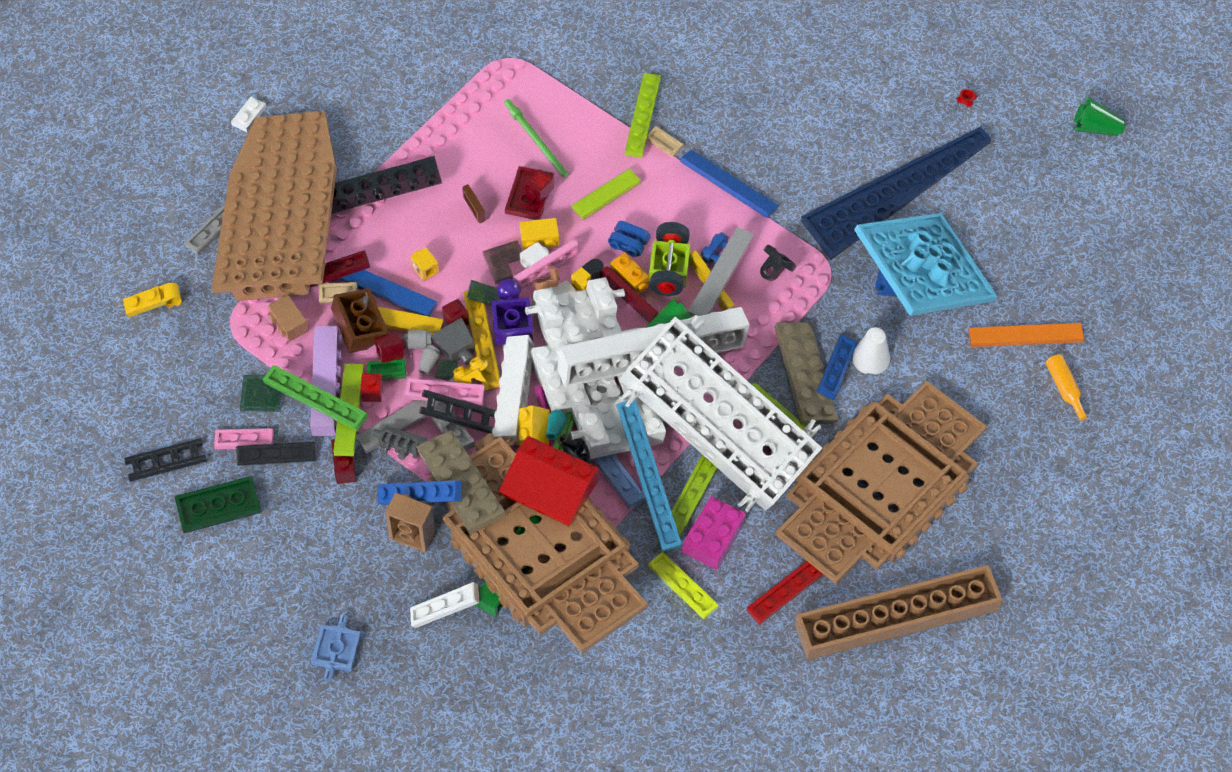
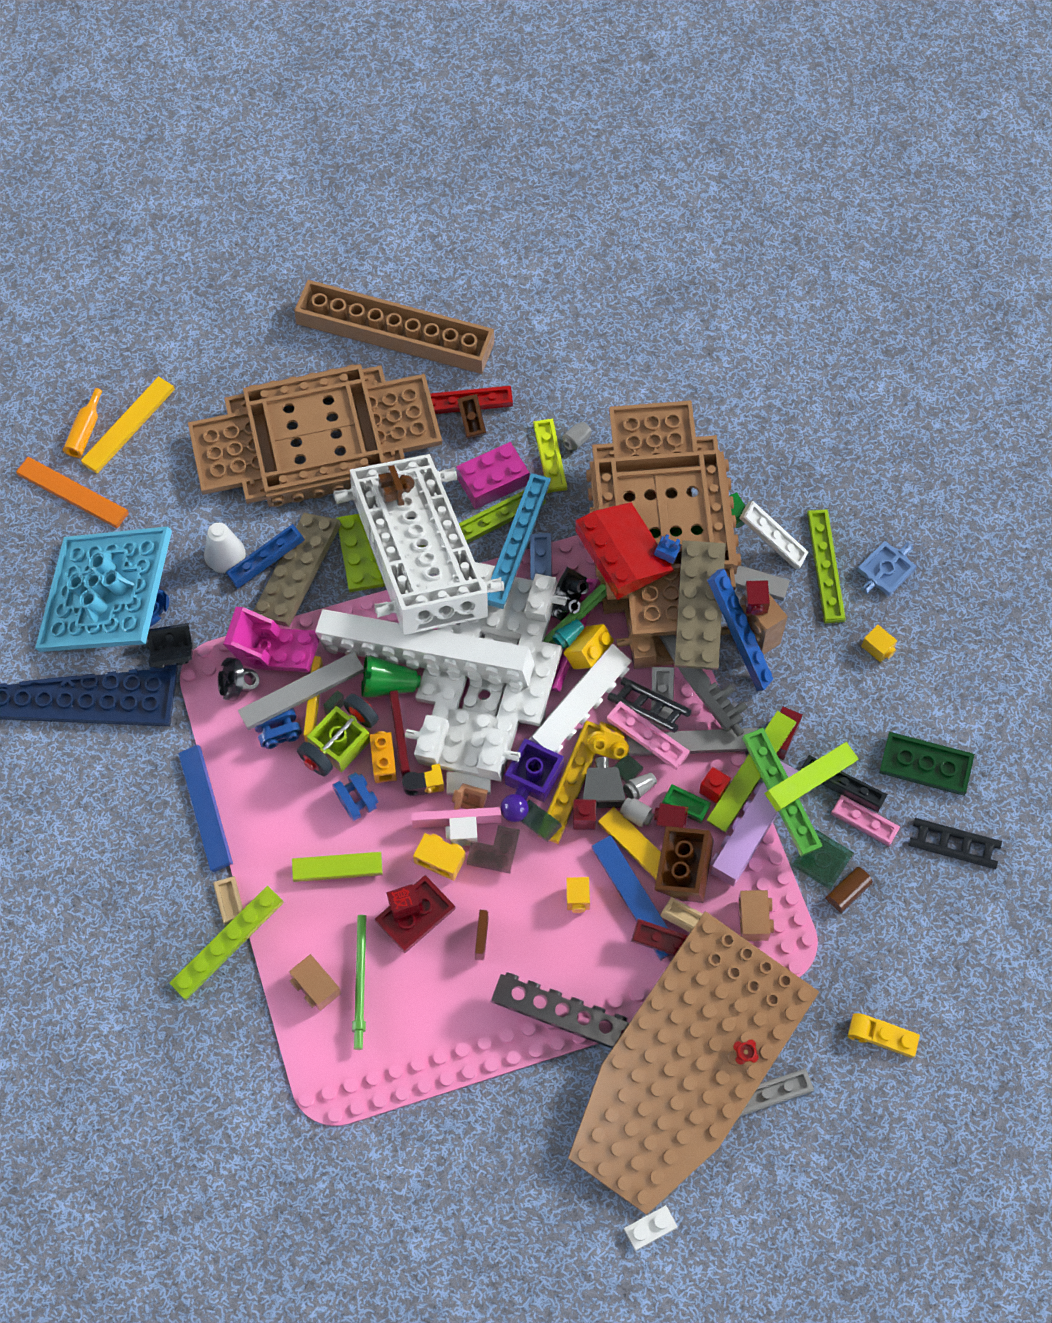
camera: 145 degrees left, 5 degrees up
(230, 381) = (849, 889): none -> reddish brown brick
(240, 220) = (750, 1047): none -> red plate
(298, 425) = (811, 776): none -> lime tile
(306, 576) = (879, 644): none -> yellow brick
(390, 624) = (826, 566): none -> lime tile
(416, 504) = (757, 597): none -> dark red brick
(439, 576) = (777, 585): none -> light grey tile
(512, 499) = (668, 549): none -> blue tile
(563, 118) = (314, 982): none -> medium nougat brick
(672, 611) = (576, 436): none -> light grey brick
(694, 288) = (335, 700): none -> clear green tile
(767, 441) = (394, 486): none -> reddish brown hips
(769, 570) = (472, 416): none -> reddish brown brick
(778, 297) = (265, 646): none -> dark pink bracket
(843, 260) = (170, 645): none -> black bracket
(1036, 410) = (127, 425): none -> yellow tile

